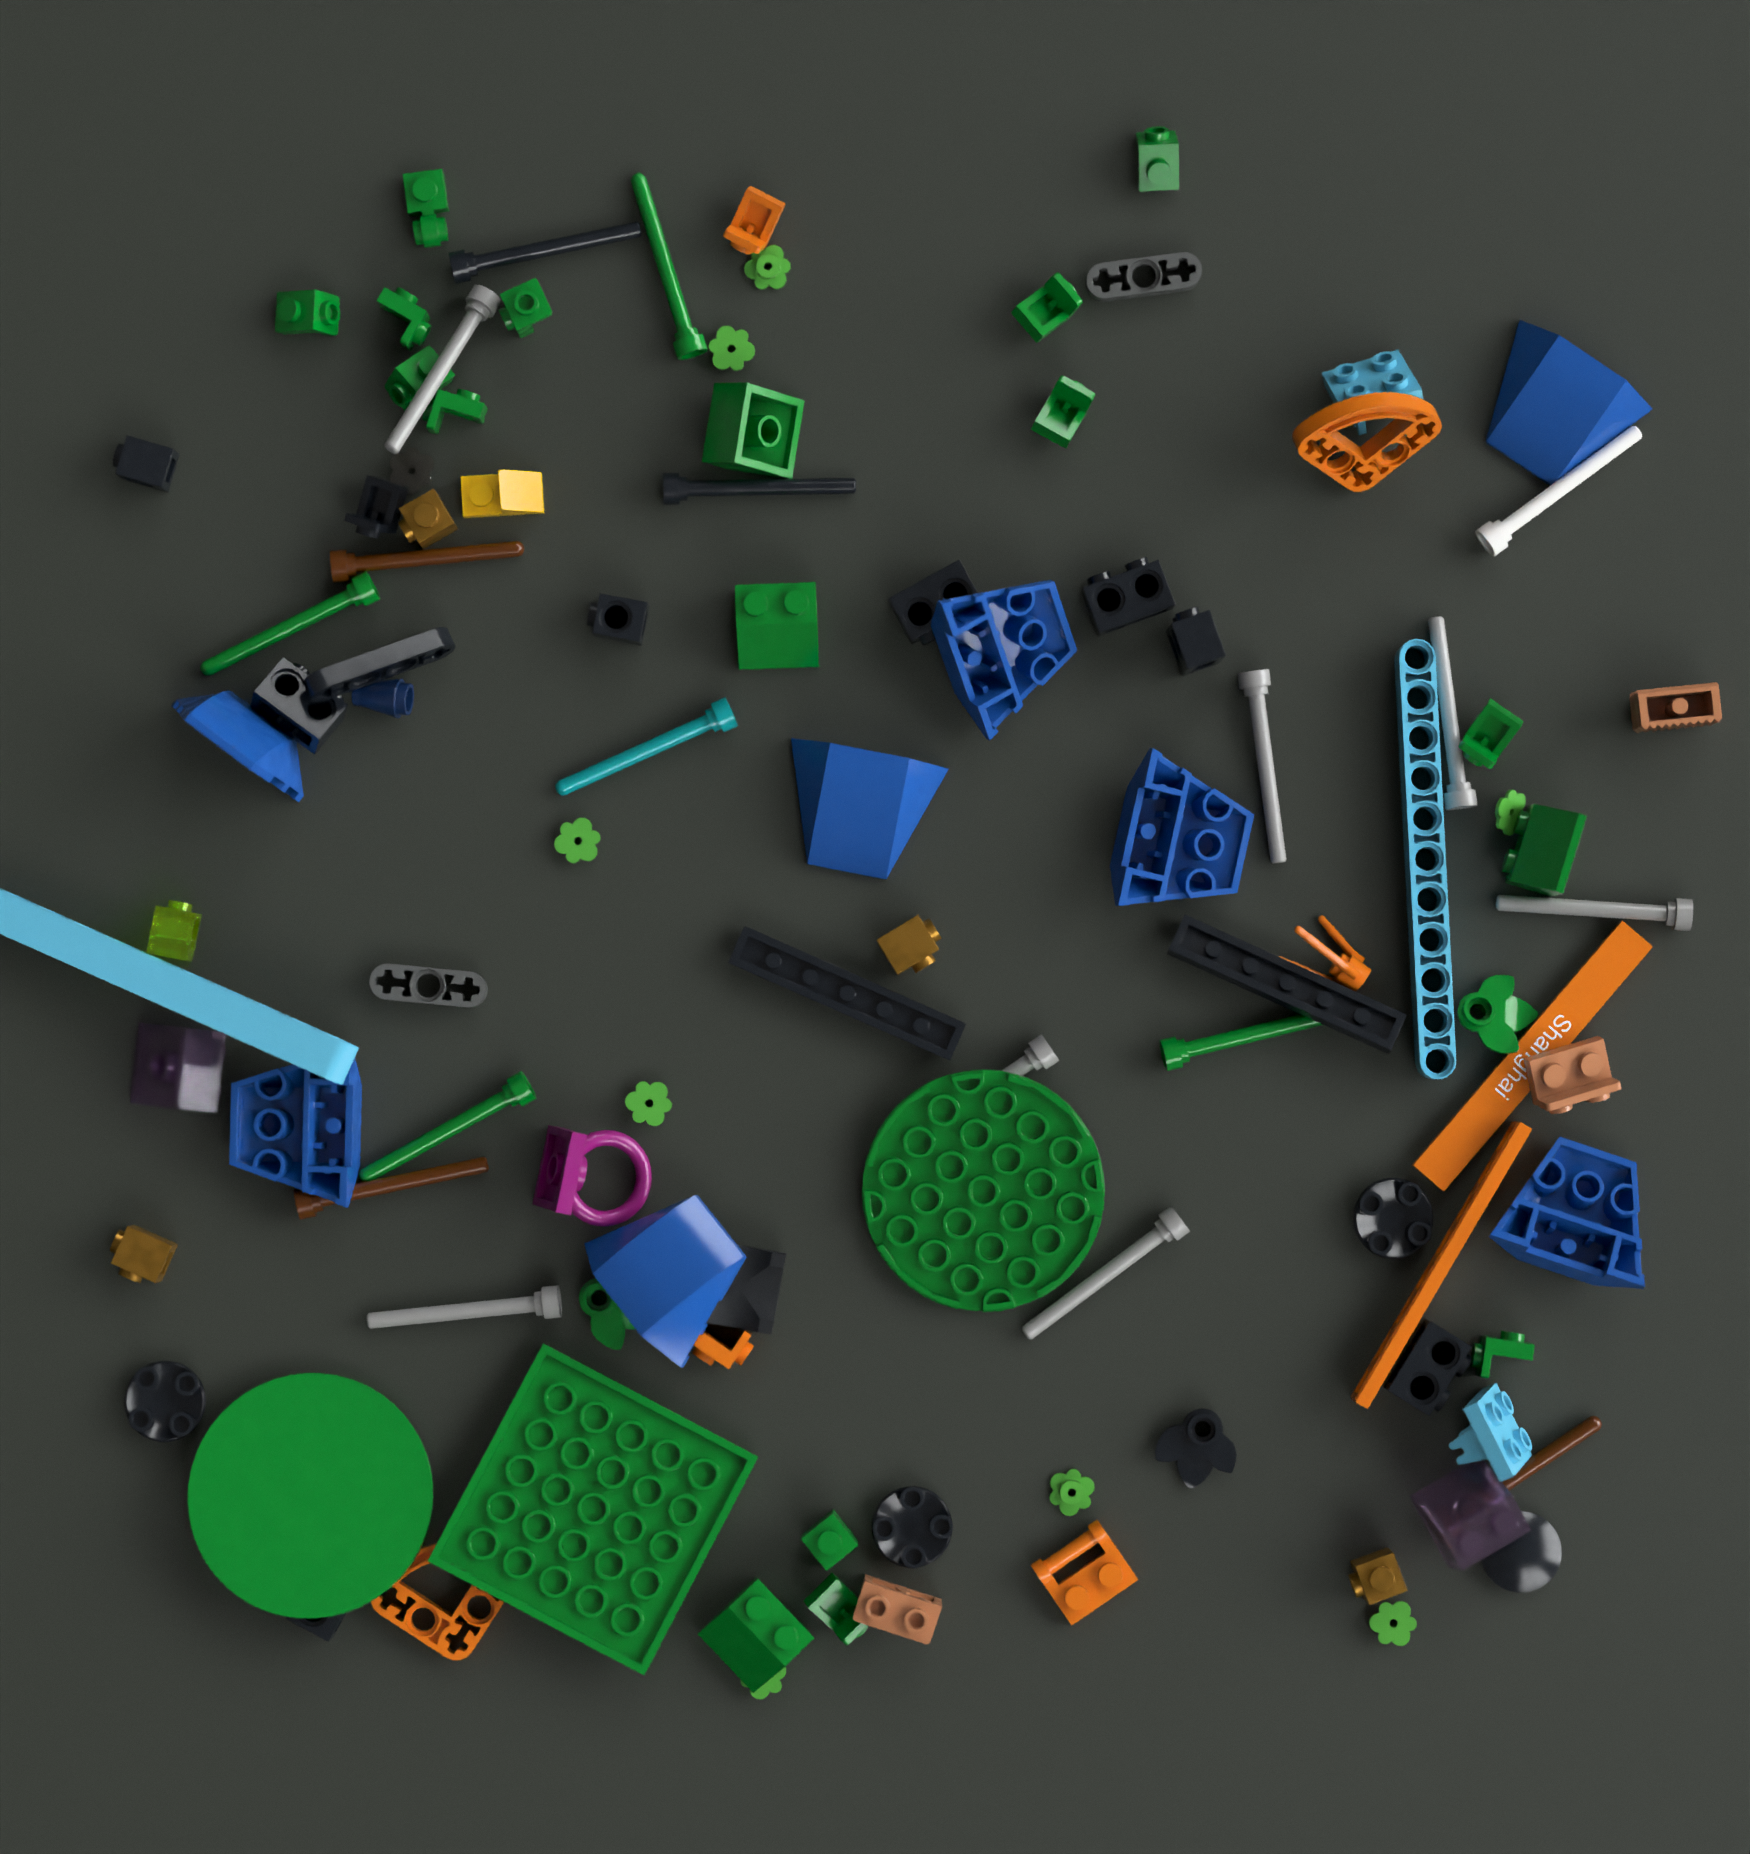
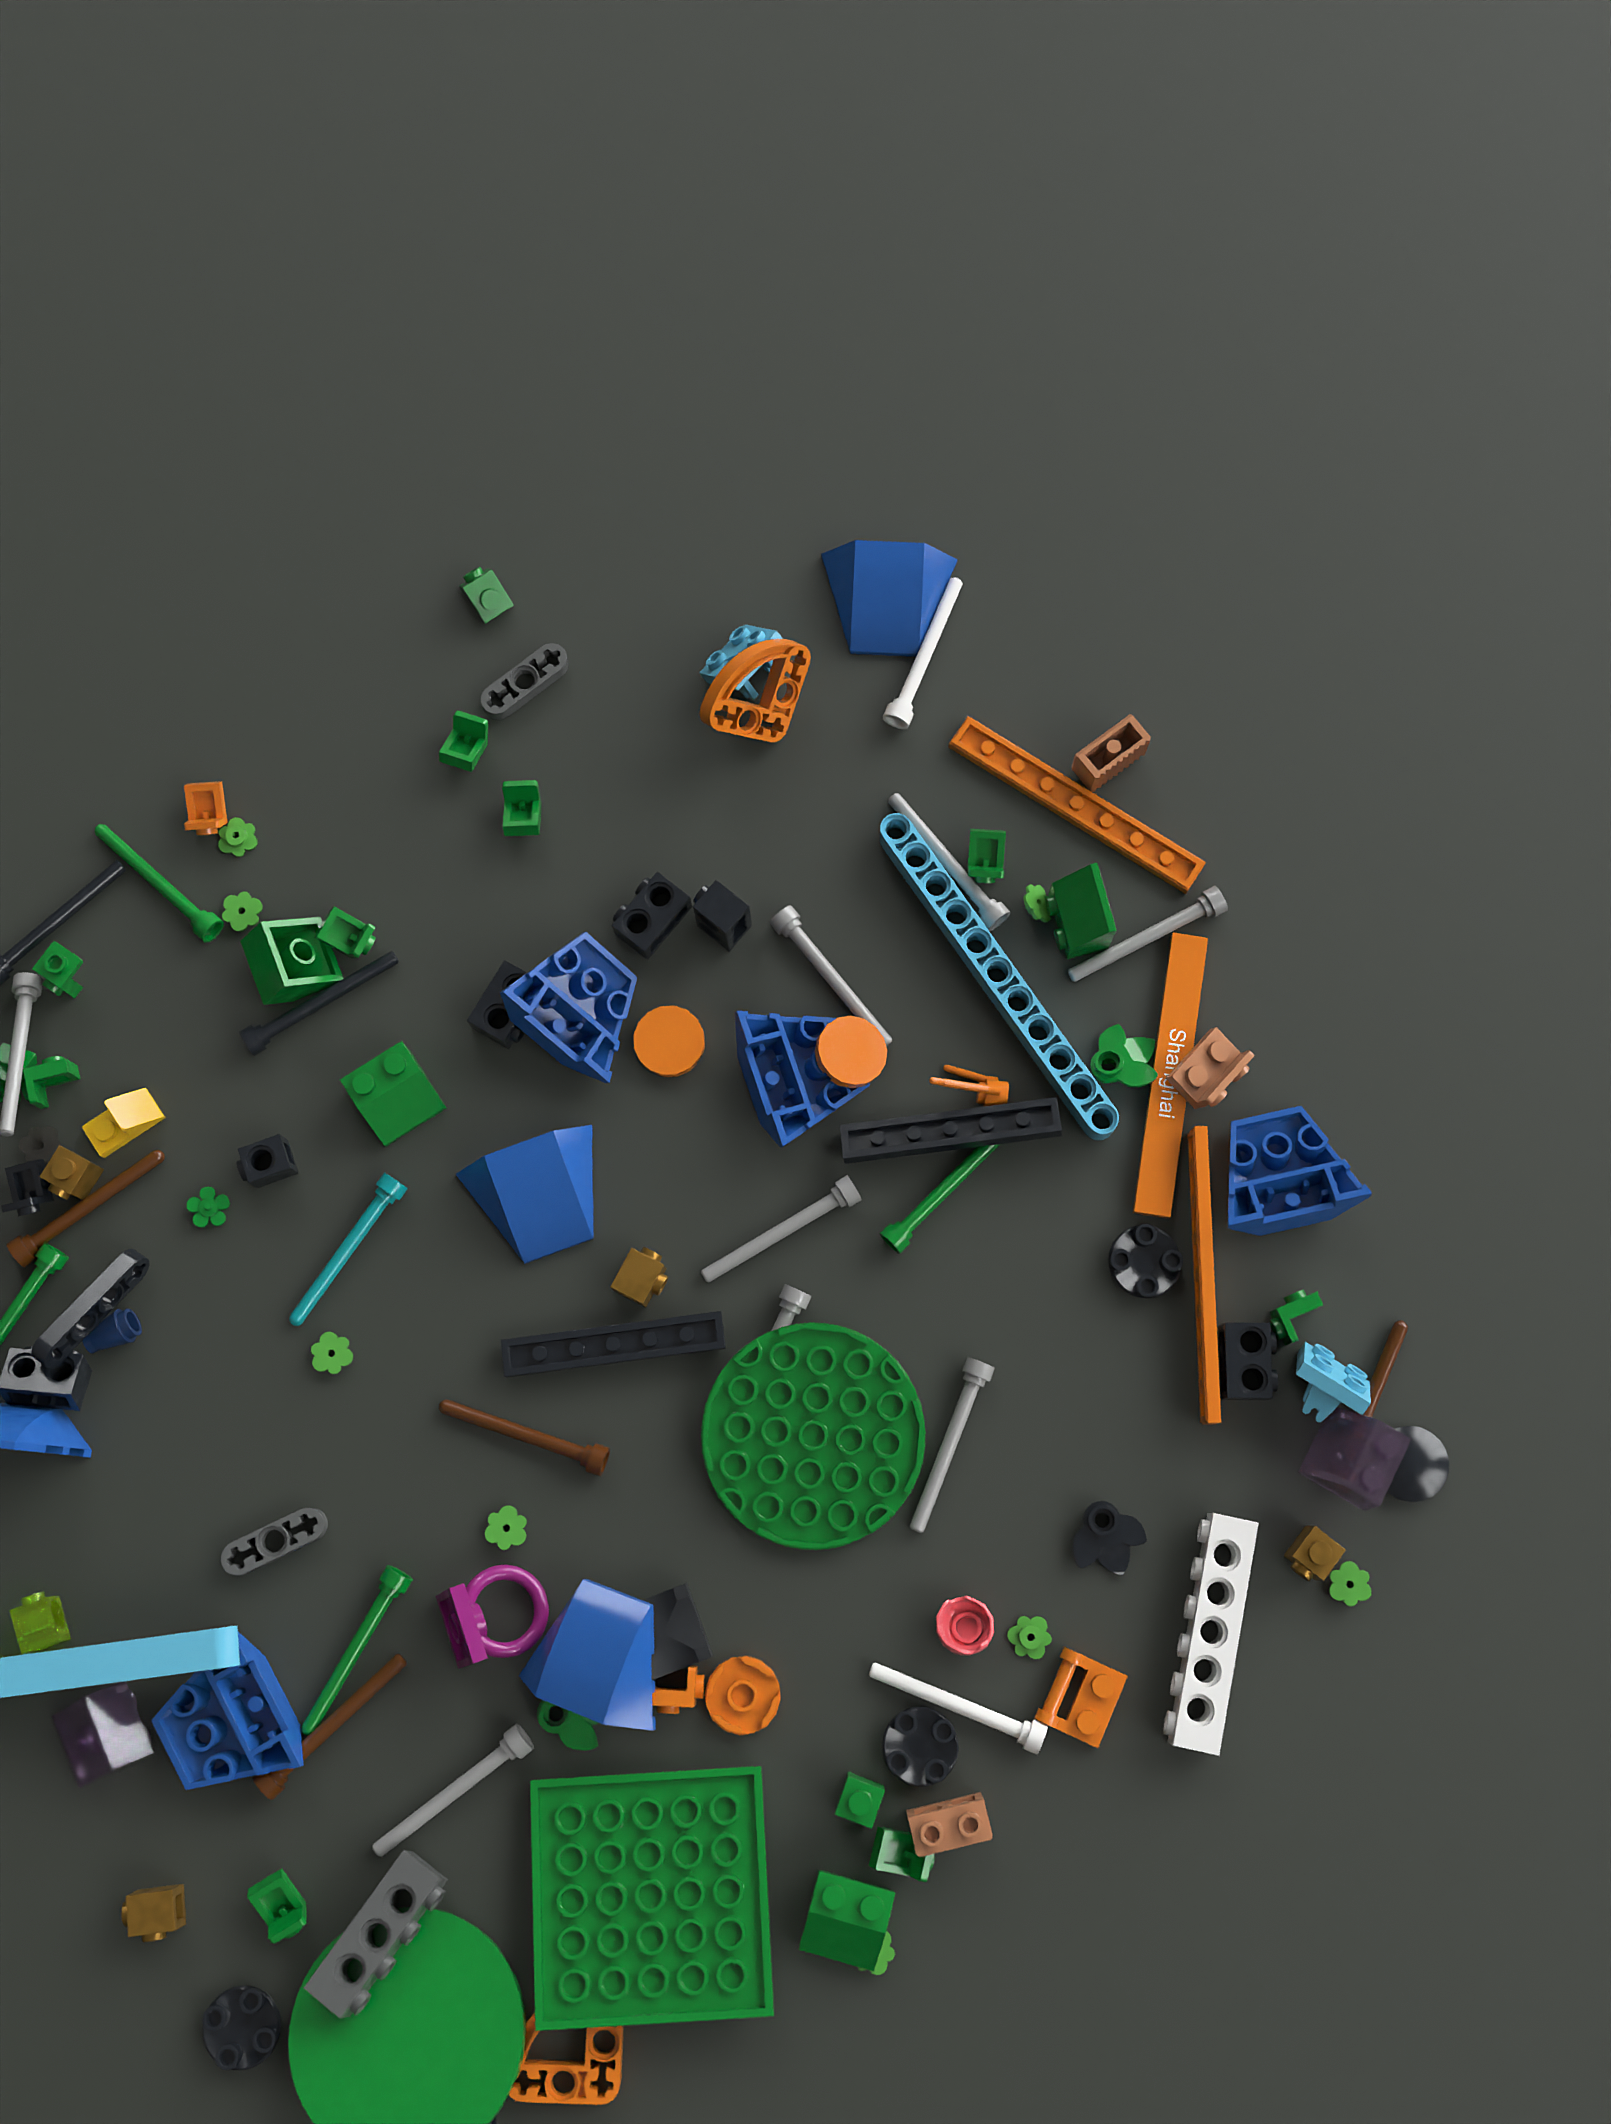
camera: 25 degrees left, 10 degrees down
(256, 1316) = (279, 1905): none -> green bracket
(271, 1408) = (331, 1981): none -> dark grey brick
(538, 628) = (208, 1208): none -> green plant
(764, 1085) = (591, 1457): none -> reddish brown piece
(778, 1384) = (742, 1695): none -> orange tile
(821, 436) = (346, 933): none -> green bracket
(1016, 1575) = (1028, 1733): none -> white piece
(1017, 1446) = (964, 1625): none -> coral hair
(1070, 731) = (669, 1041): none -> orange tile
(1146, 981) = (842, 1194): none -> light grey piece
(1180, 1670) = (1207, 1731): none -> white brick
(1238, 851) = (851, 1051): none -> orange tile
(1611, 734) = (1077, 804): none -> orange tile

